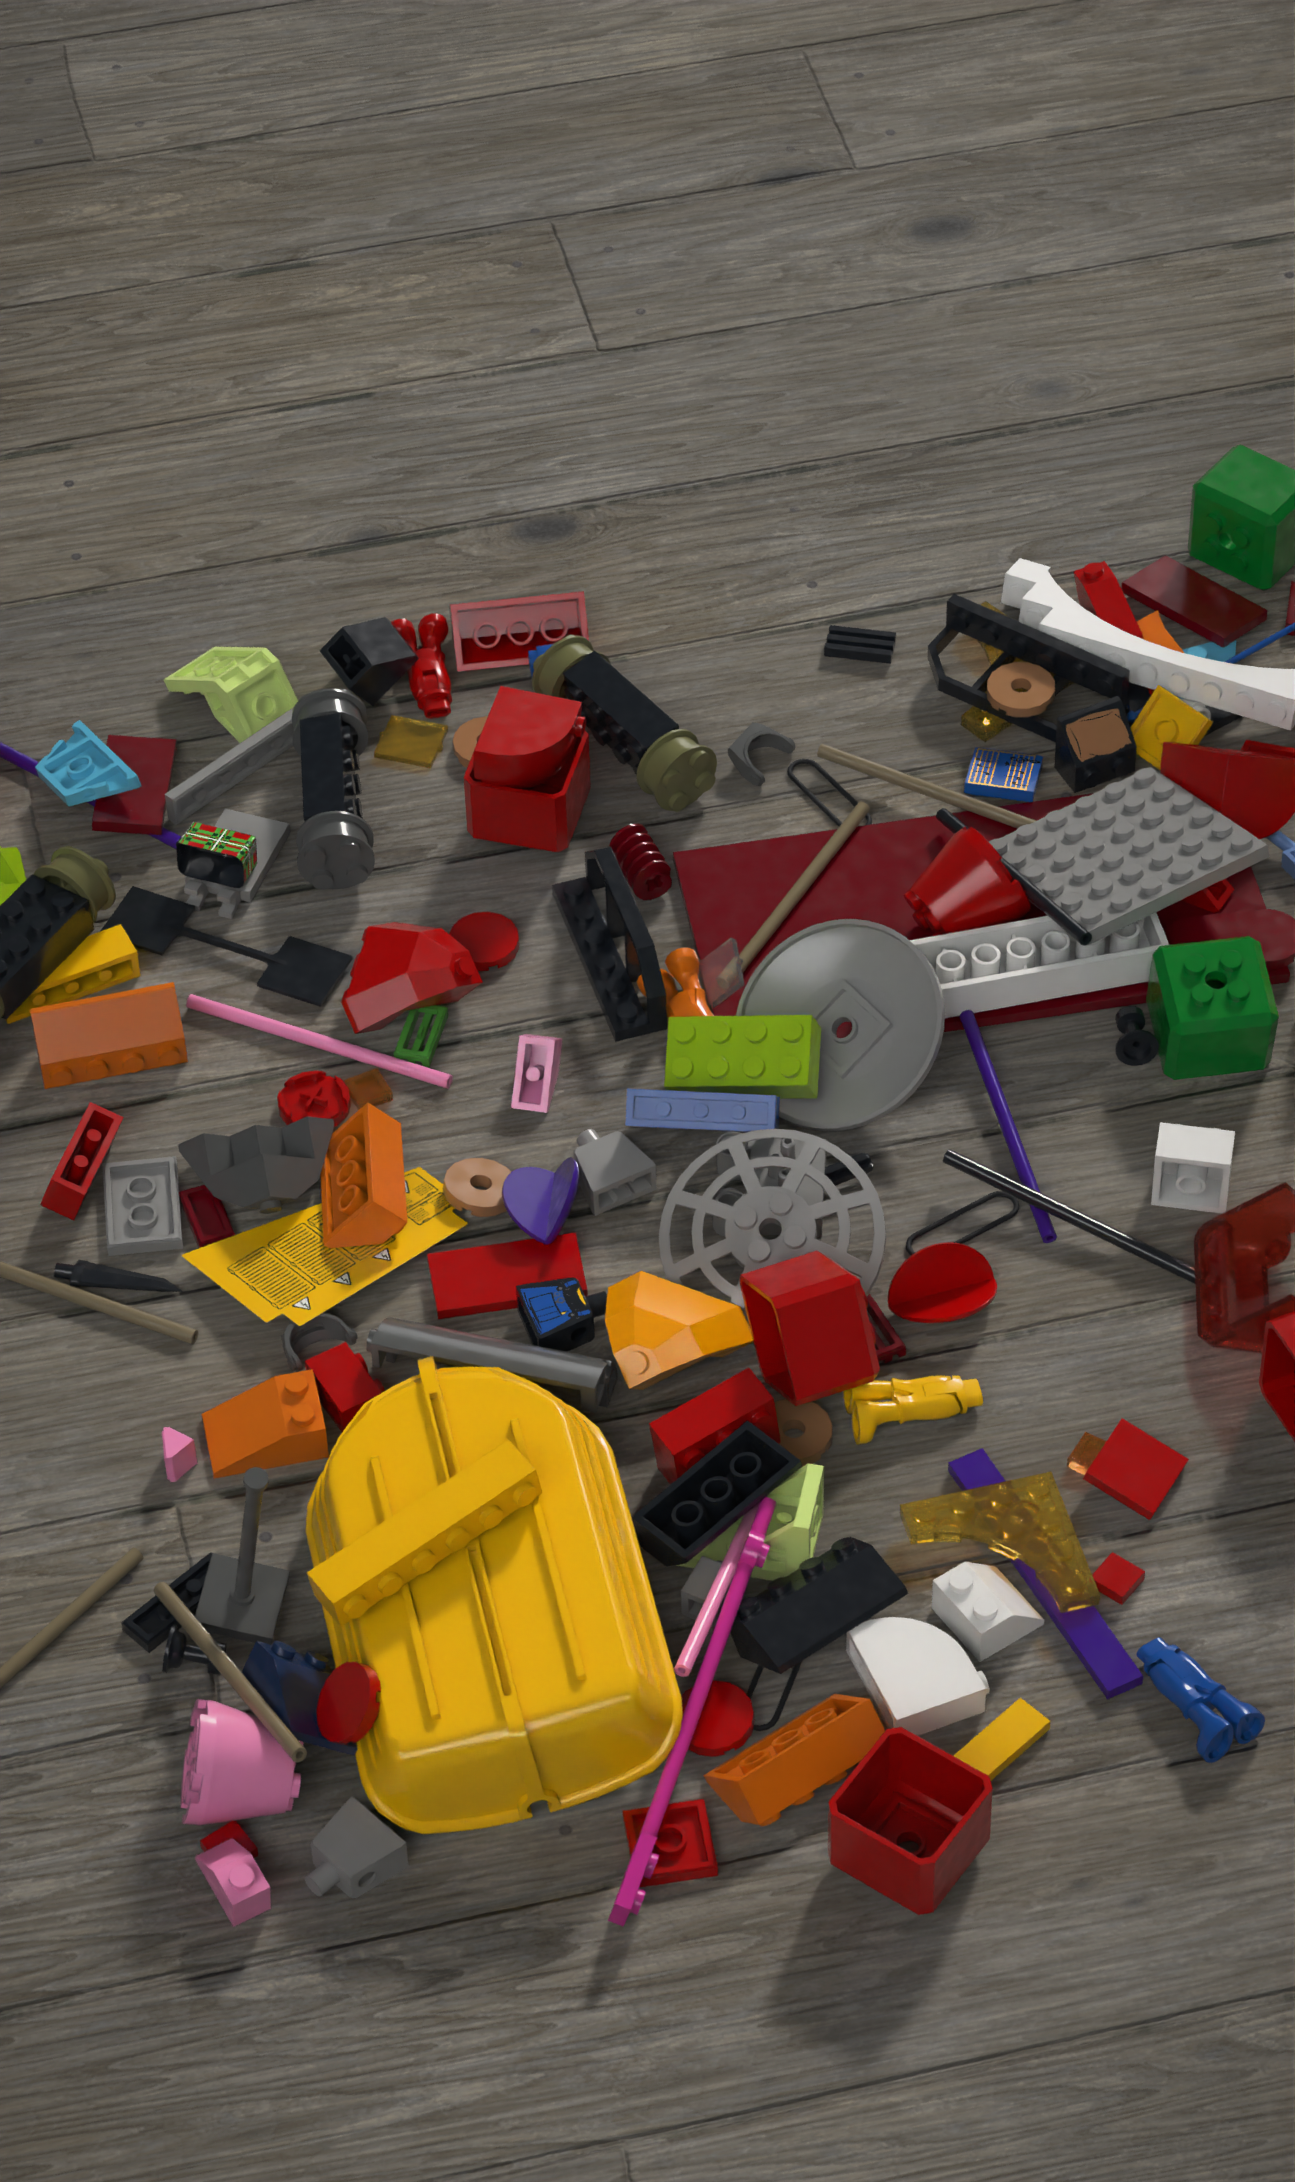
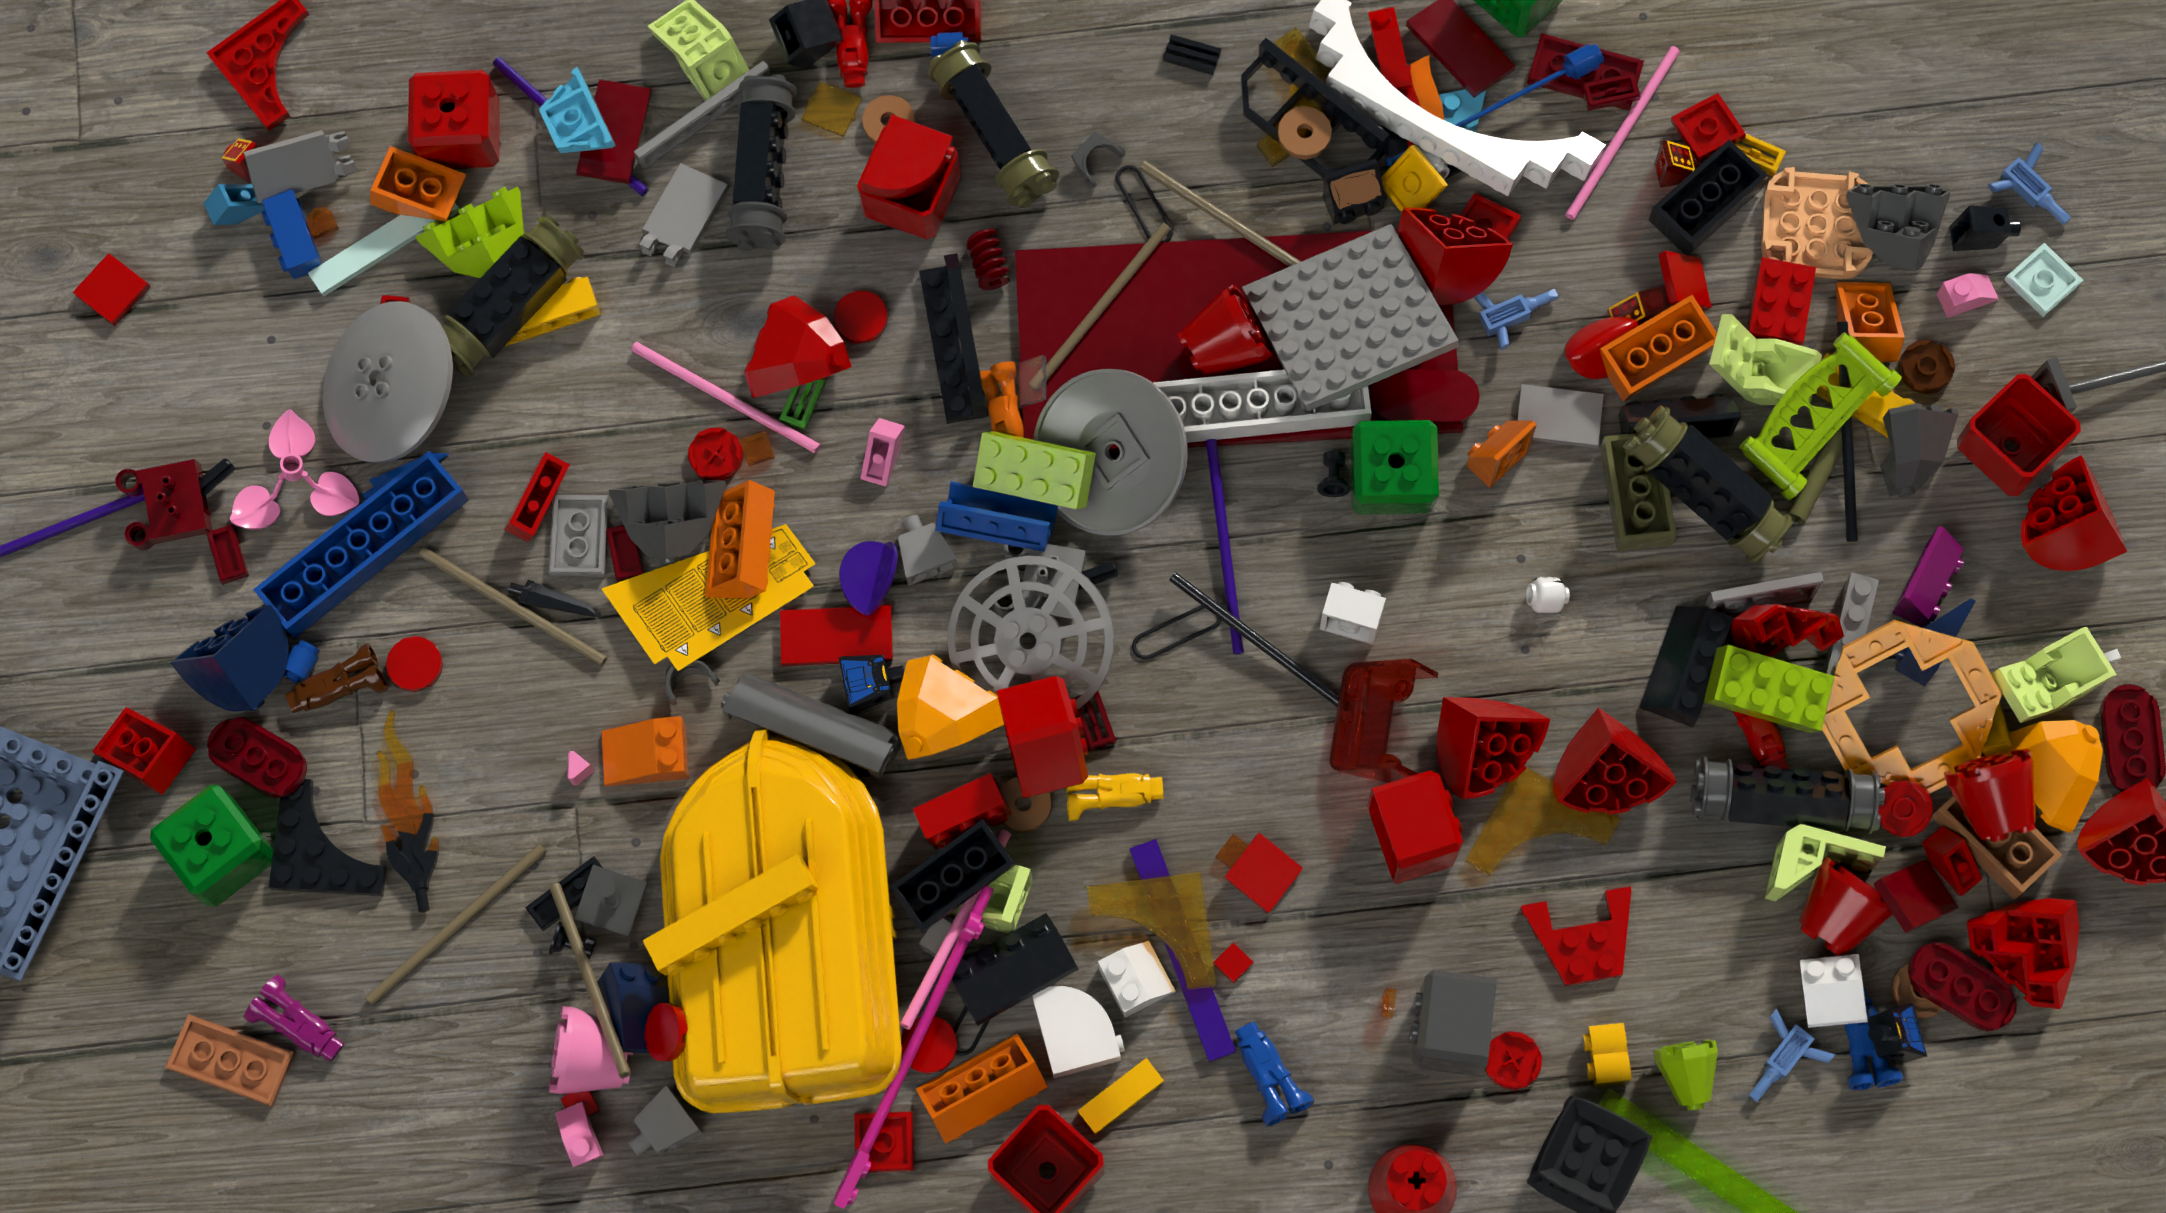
camera: 10 degrees right, 25 degrees up
(109, 1035) = (568, 384): orange slope -> none
(203, 851) = (666, 218): piece -> none
(296, 970) = (718, 328): black hinge -> none
(343, 1382) = (705, 725): red brick -> none
(472, 1172) = (819, 540): medium nougat tile -> none
(942, 1284) = (1150, 697): red piece -> none
(1003, 774) = (1280, 205): blue tile -> none
(1033, 893) = (1264, 328): black piece -> none

